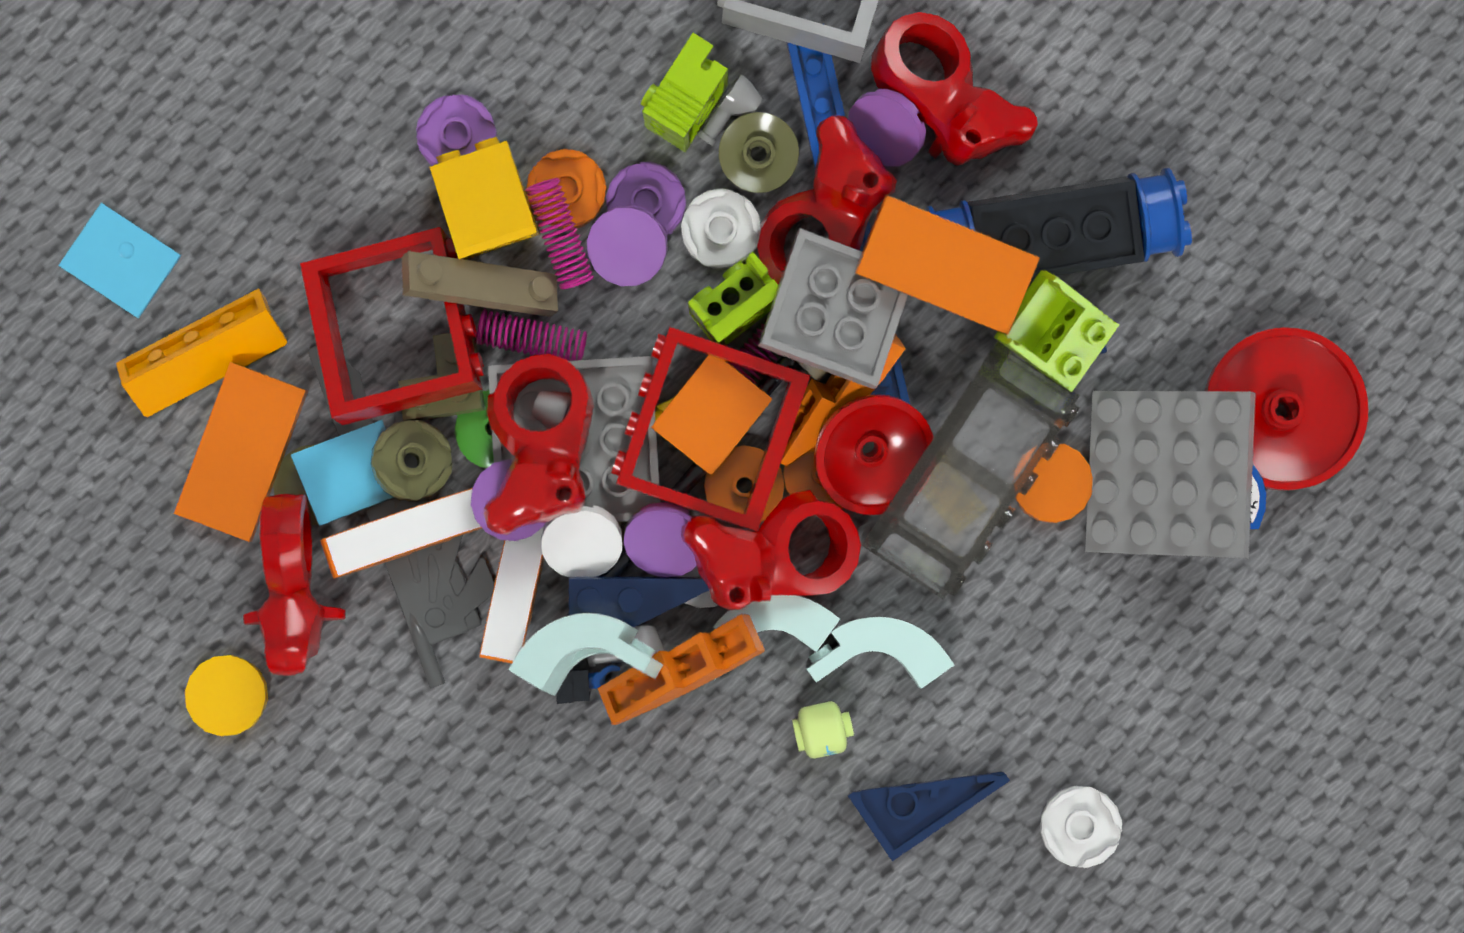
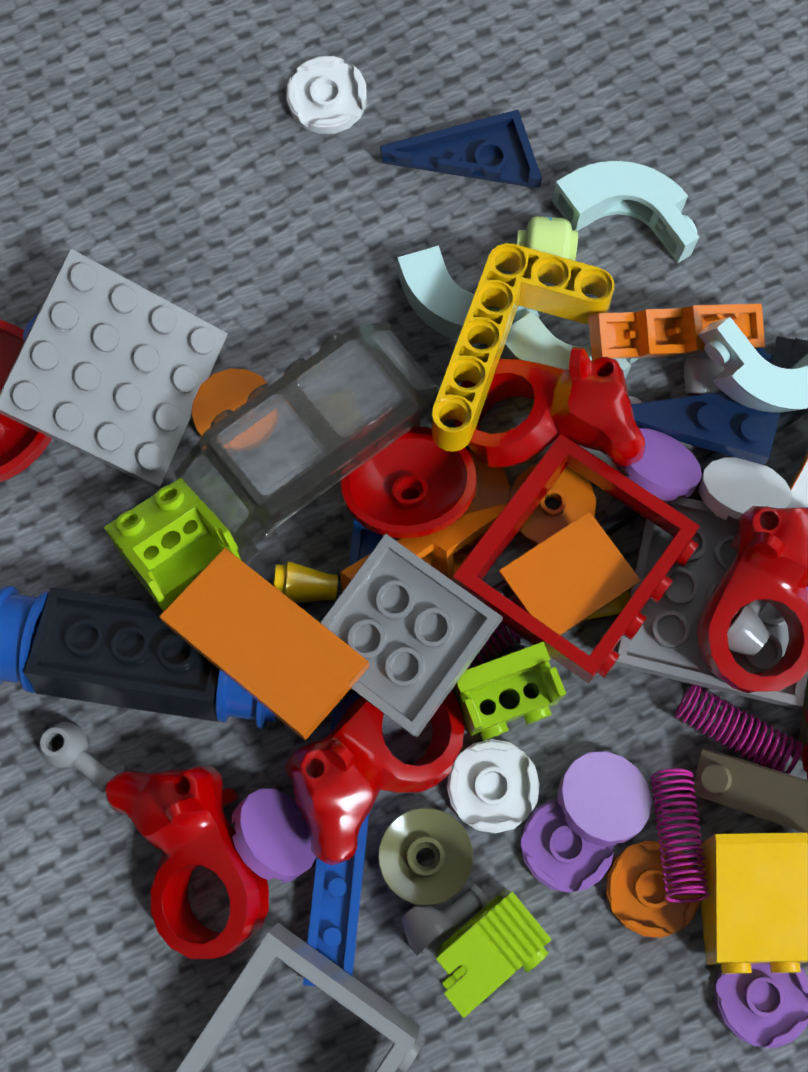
camera: 160 degrees left, 10 degrees down
(766, 811) = (631, 191): none -> light aqua arch
(841, 613) = (492, 328): none -> yellow beam
(937, 343) = (304, 583): none -> yellow cone
(1077, 143) = (73, 753): none -> light grey bar

